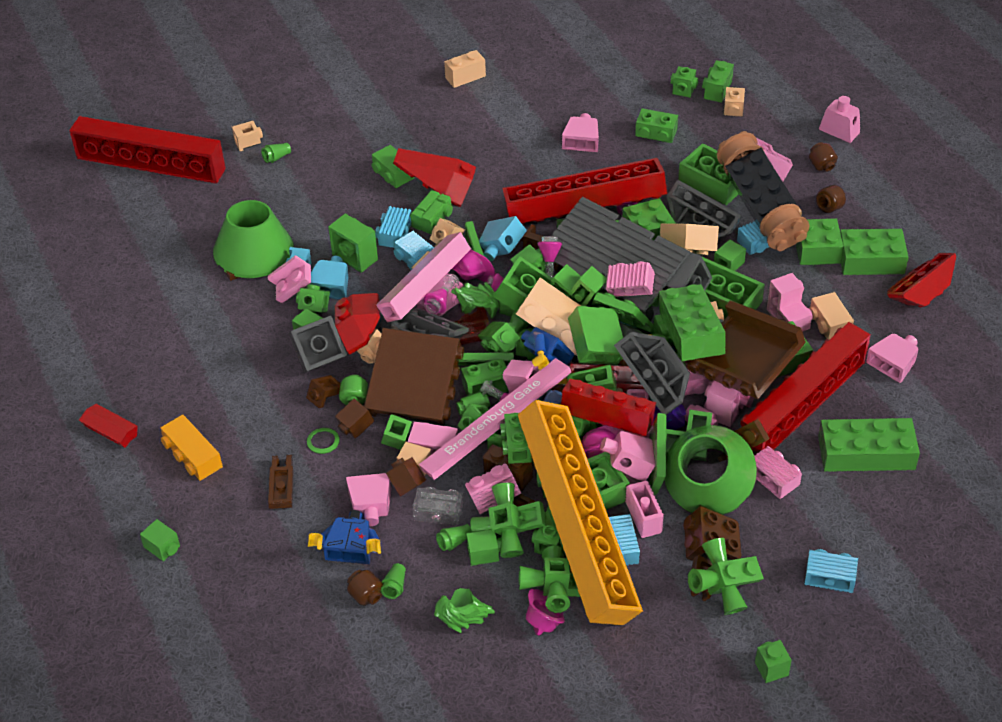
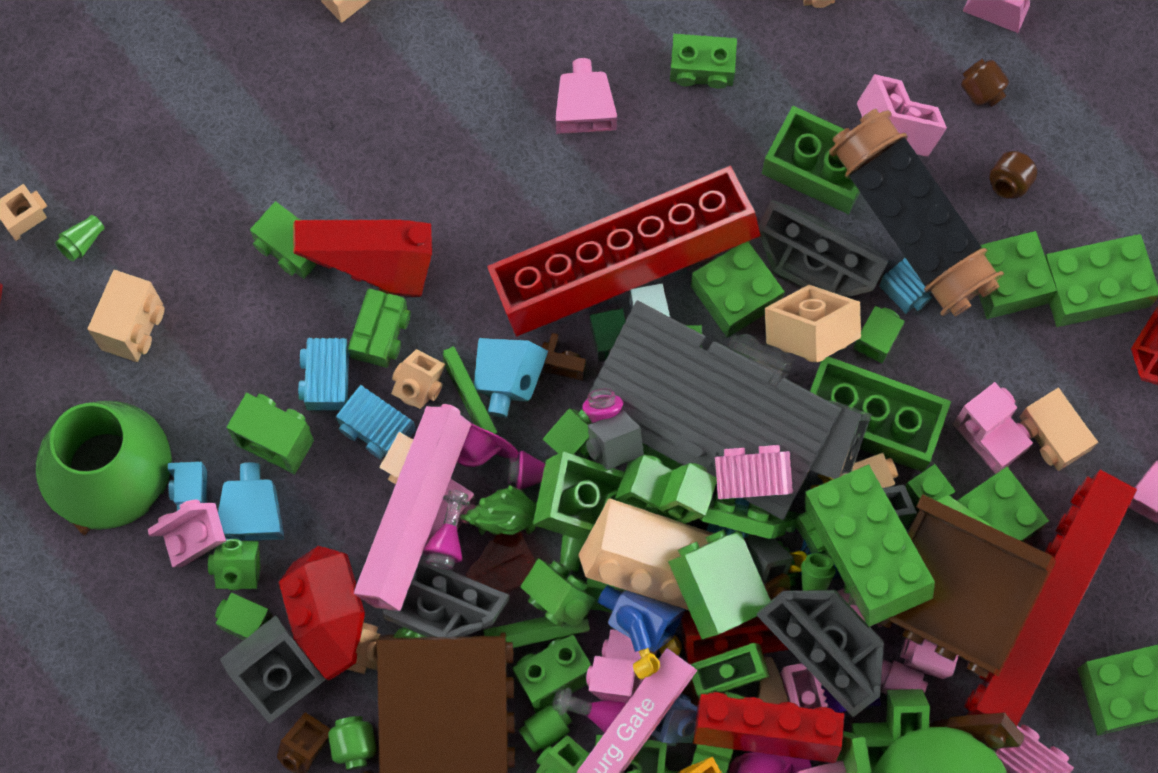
camera: 15 degrees left, 25 degrees up
(289, 181) = (126, 316): none -> light nougat brick
(551, 258) = (615, 440): none -> dark grey brick

